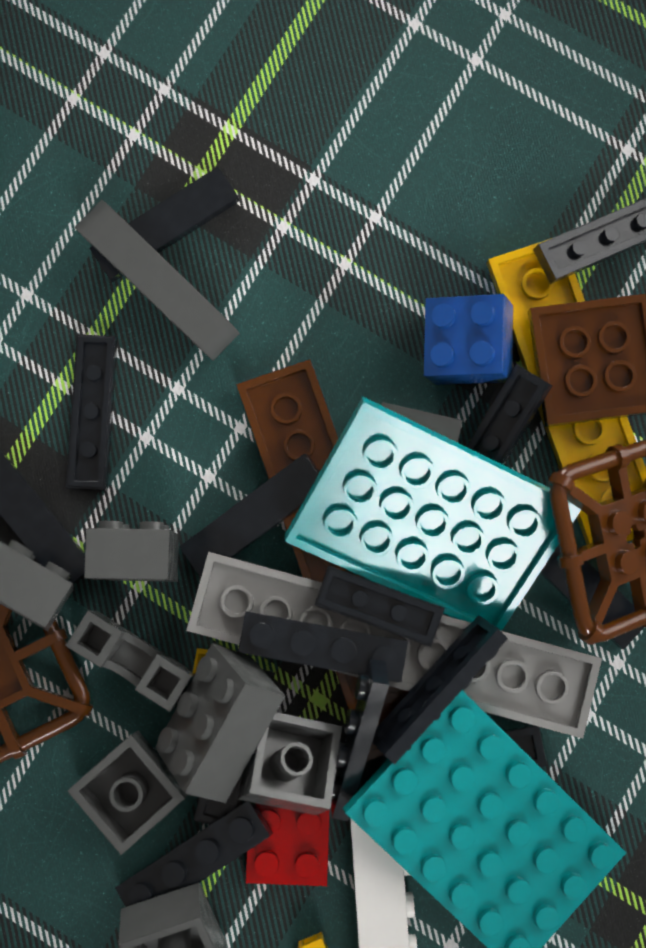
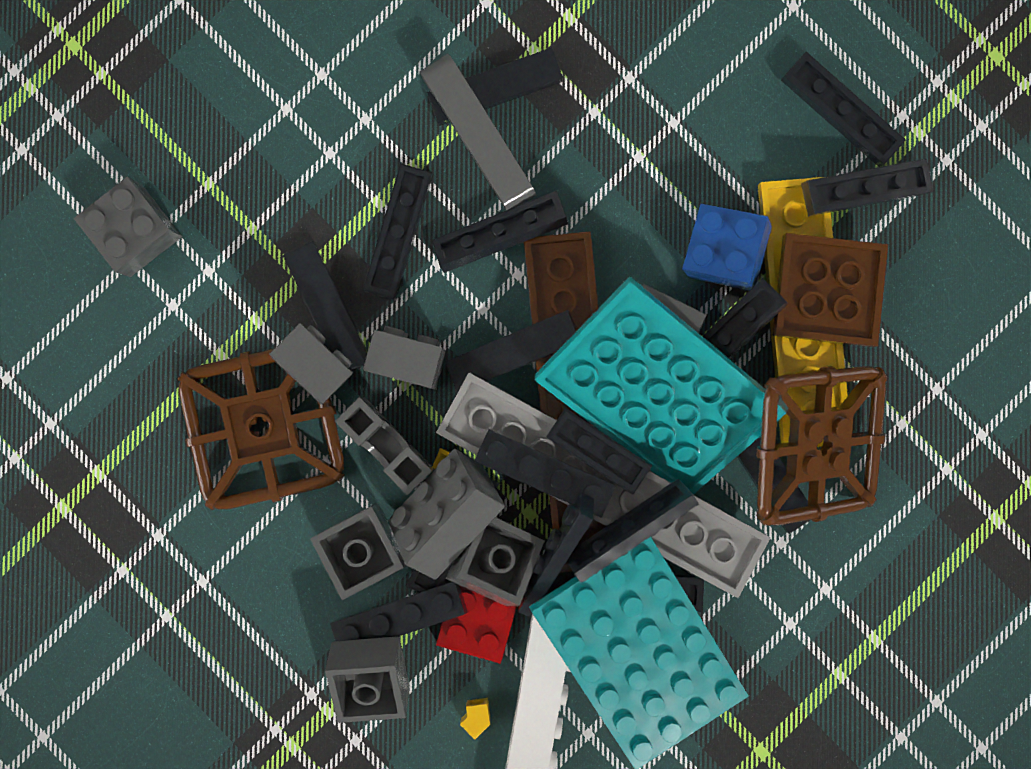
camera: 15 degrees right, 5 degrees up
(207, 384) = (500, 232): none -> black plate
(559, 158) = (843, 109): none -> black plate

